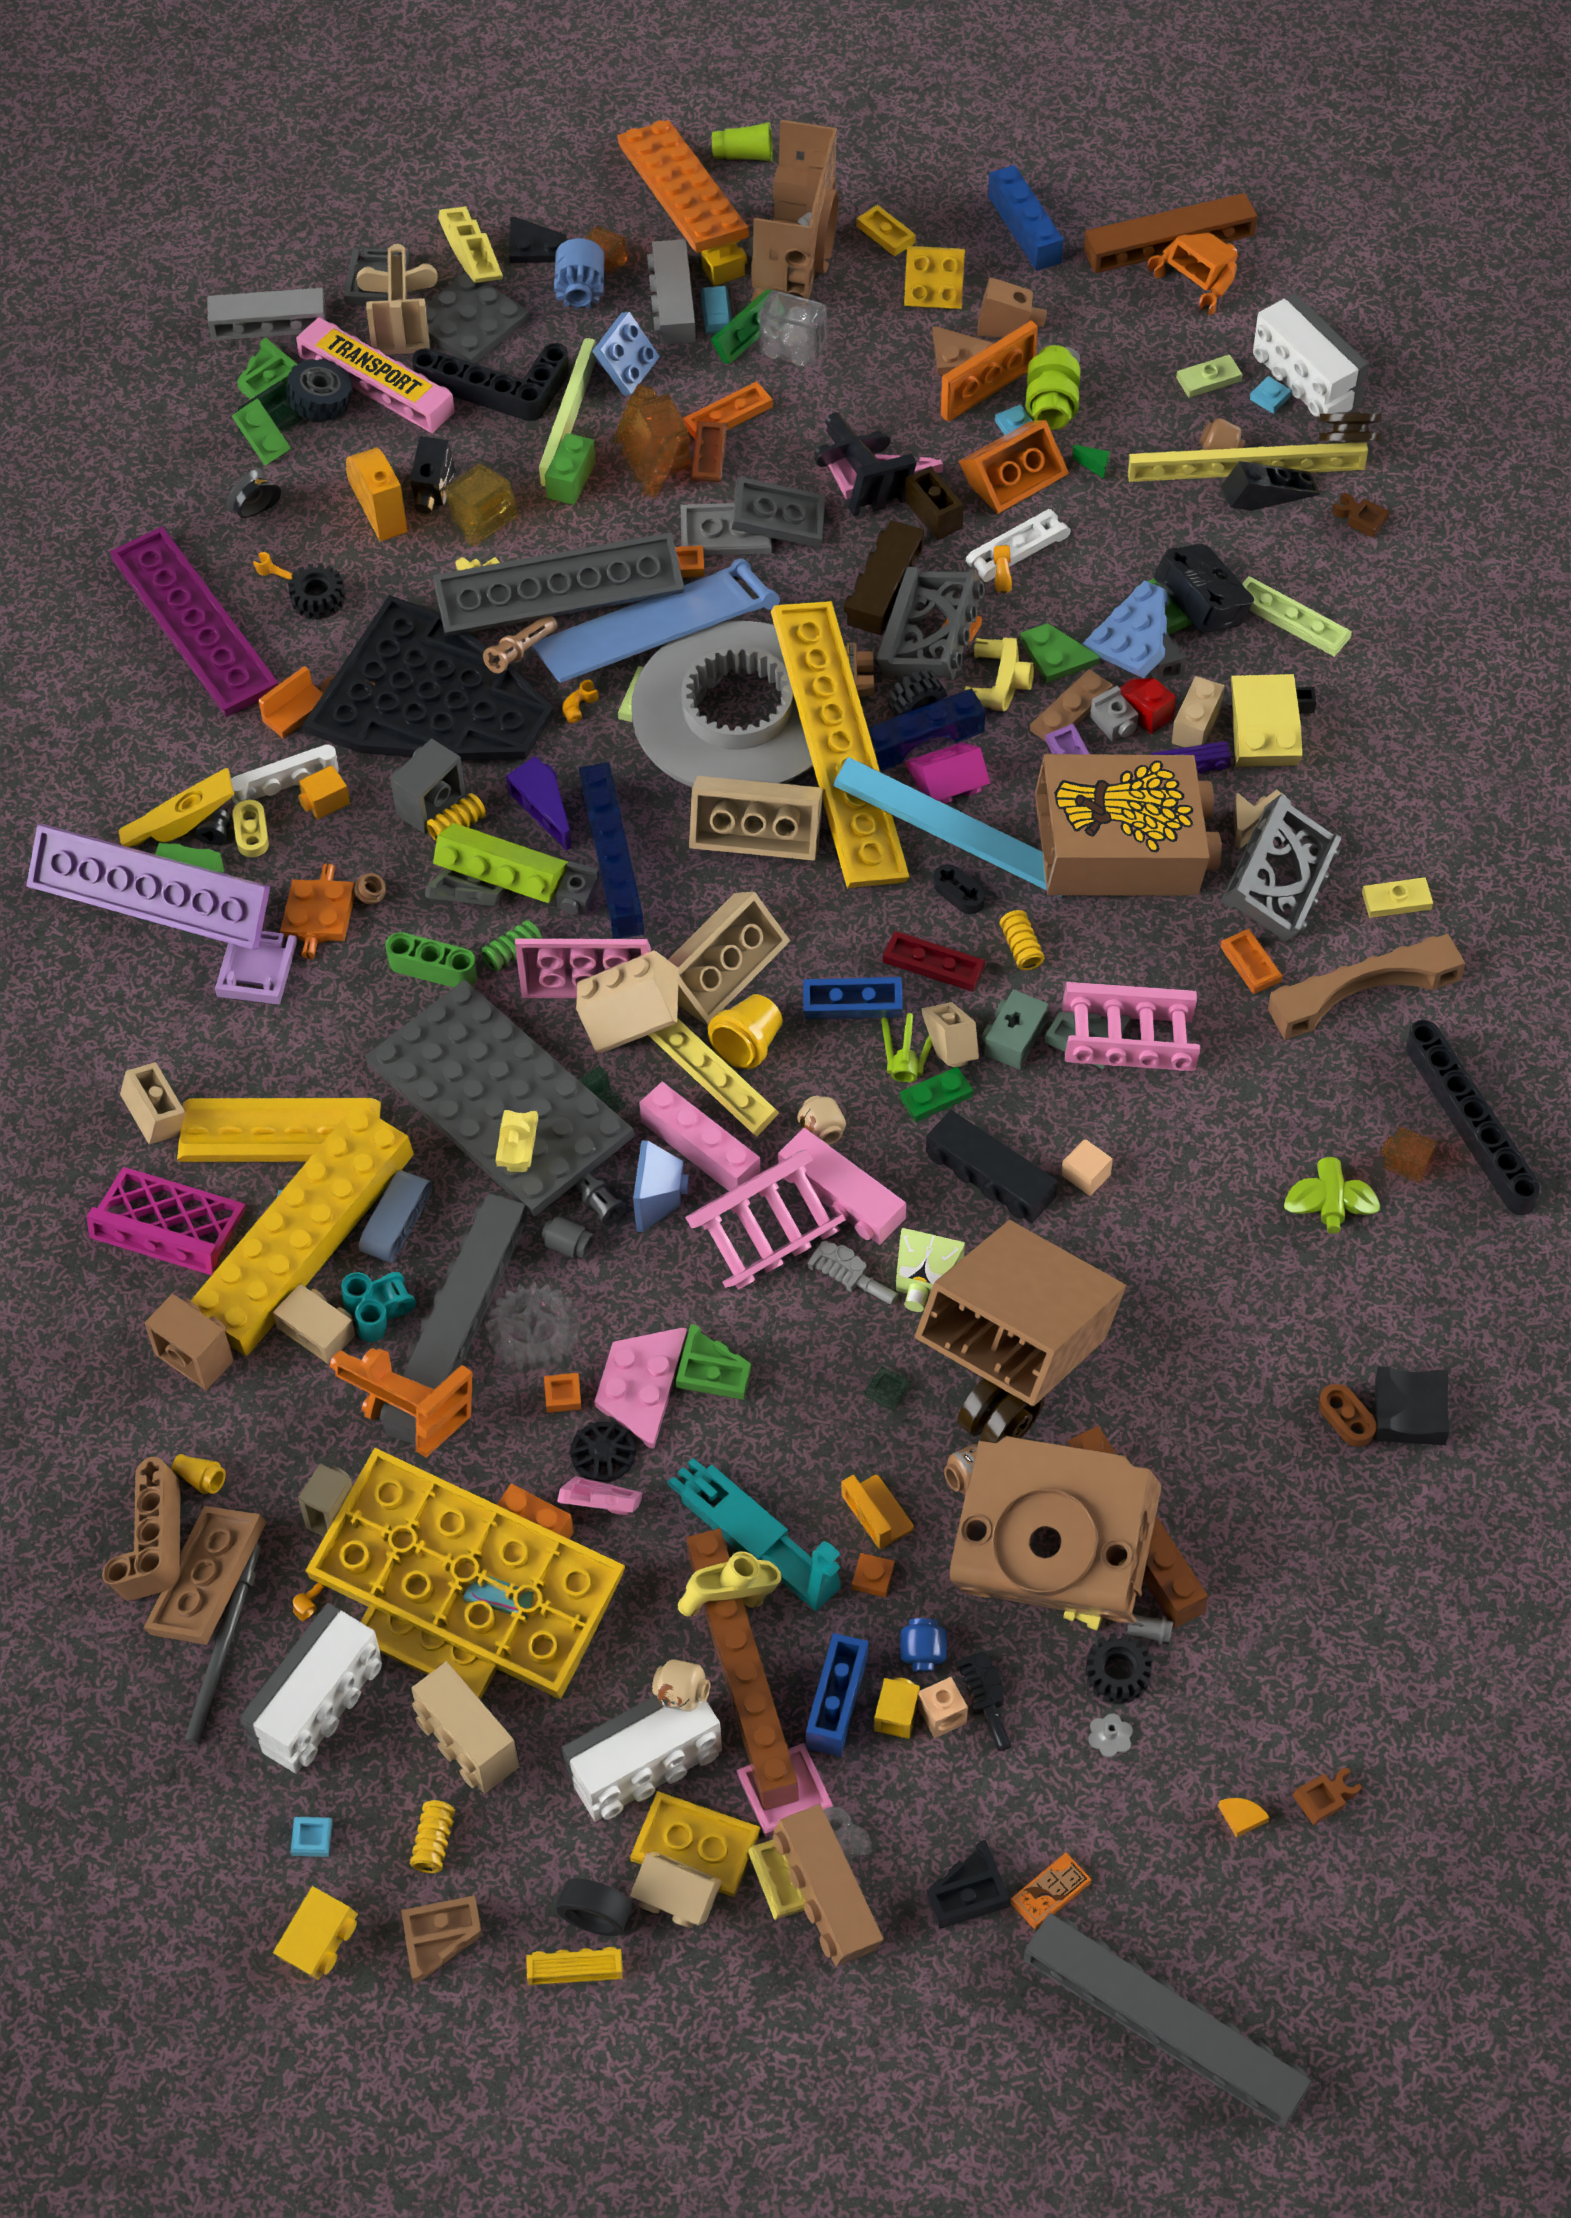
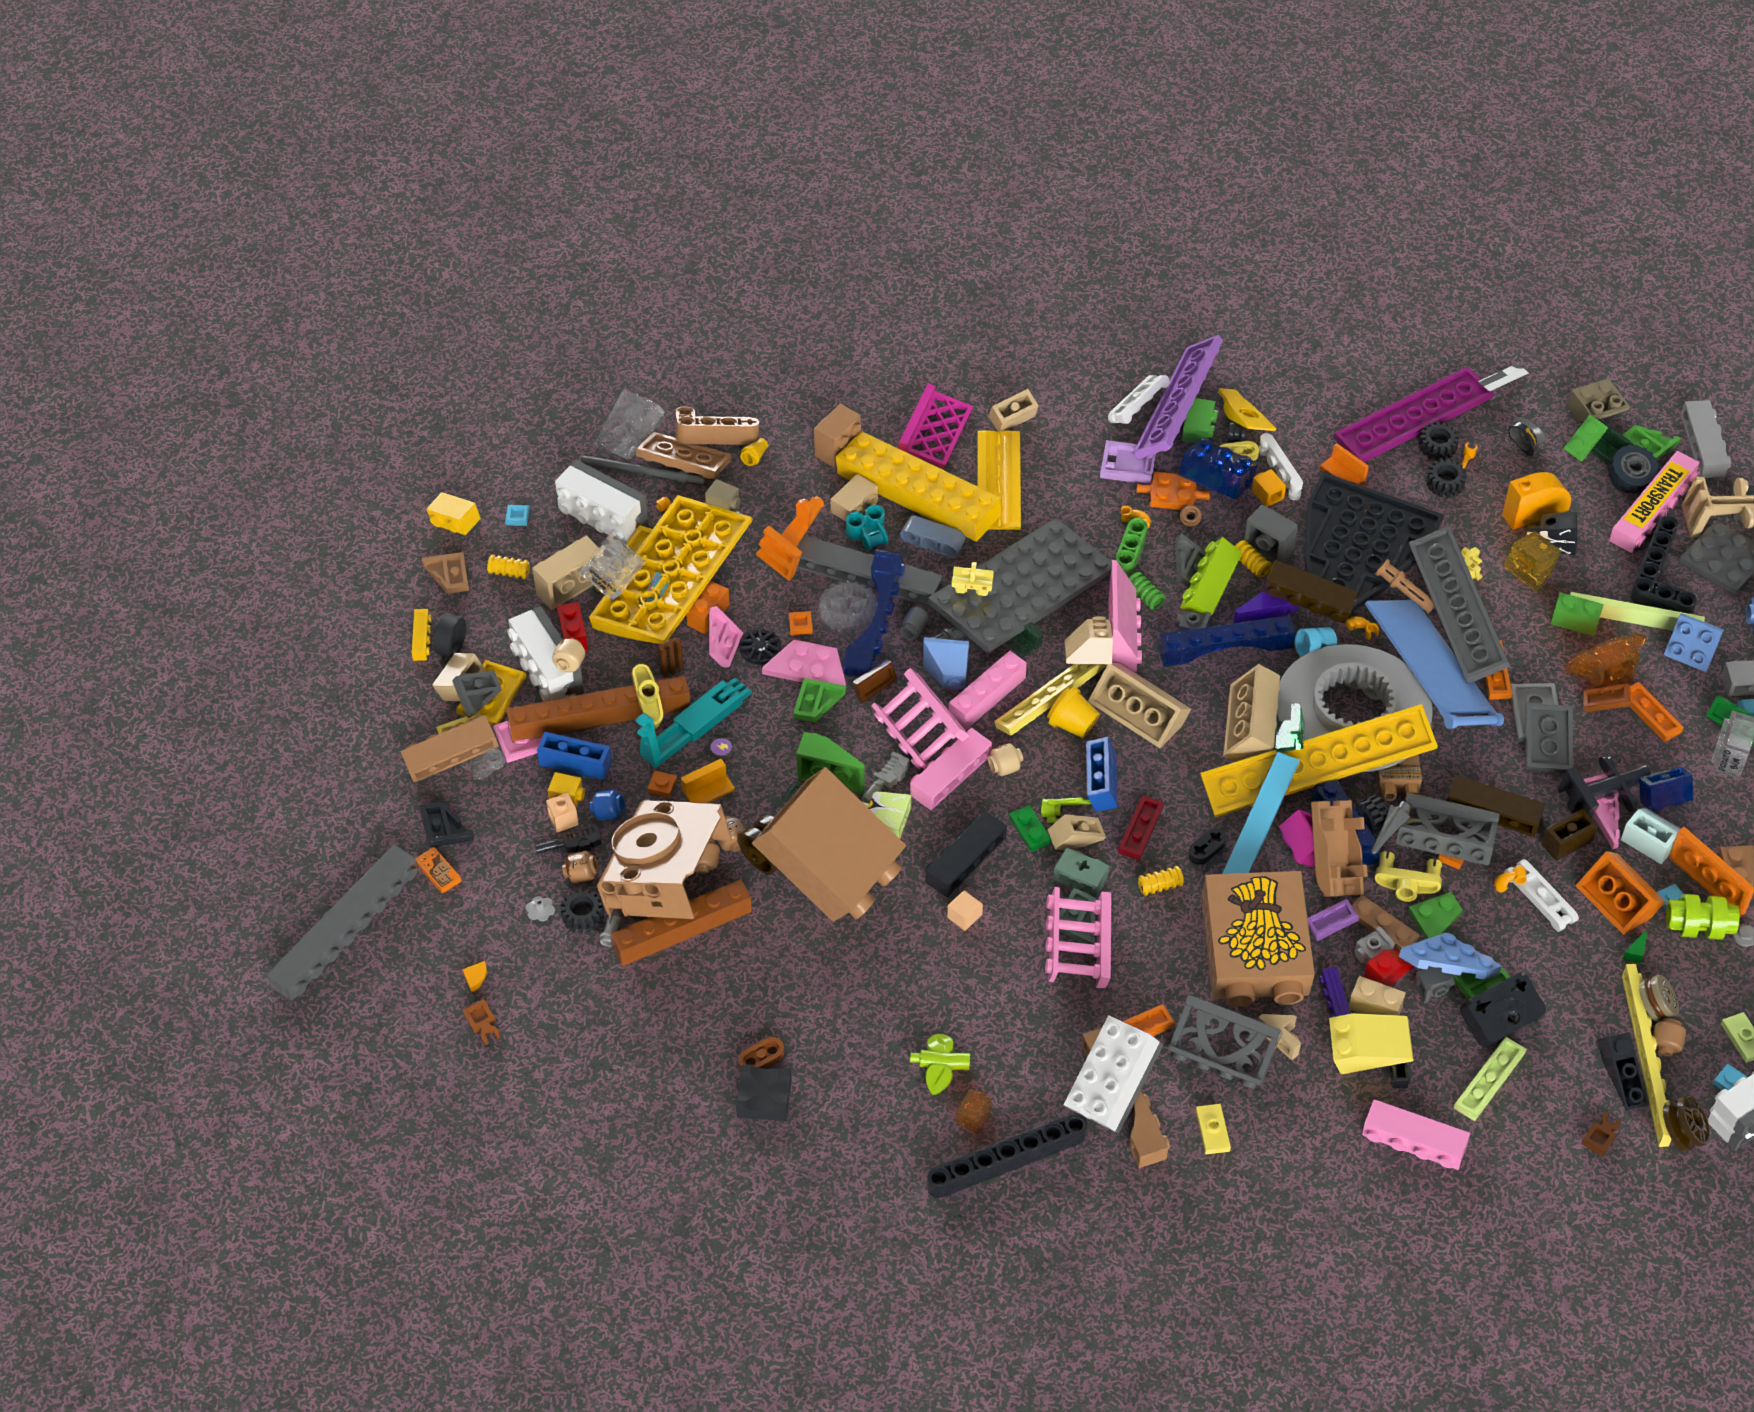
camera: 90 degrees right, 5 degrees down
(129, 516) = (1503, 377): none -> white sticker
(129, 1666) = (629, 424): none -> clear slope
(134, 945) = (1139, 396): none -> white plate
(198, 414) = (1598, 400): none -> dark tan slope
(242, 582) = (1439, 432): none -> black tyre
(293, 844) = (1218, 468): none -> clear blue brick
(366, 950) = (1128, 514): none -> light orange arm
(483, 1641) = (612, 566): none -> clear brick
(500, 1259) = (862, 653): none -> clear blue arch
(542, 740) = (1310, 591): none -> dark brown brick
(569, 1718) = (572, 623): none -> red brick
(619, 746) = (1313, 639): none -> medium azure wheel
(643, 1559) = (674, 663): none -> reddish brown tile
(680, 1286) = (874, 680): none -> reddish brown tile
(716, 1849) = (476, 690): none -> dark grey wing
(799, 762) = (1291, 732): none -> clear green panel
(804, 1495) = (721, 749): none -> tile
(846, 1337) = (820, 752): none -> bright green slope
(858, 403) = (1666, 788): none -> clear blue brick
(926, 424) = (1650, 834): none -> light aqua slope
(935, 663) = (1395, 818): none -> dark grey piece
(985, 727) = (1337, 849): none -> medium nougat piece
(1042, 1674) = (580, 867): none -> medium nougat head
(1175, 438) = (1659, 998): none -> dark tan head
(1364, 976) = (1113, 1074): none -> white piece
(1387, 688) = (1416, 1134): none -> bright pink brick

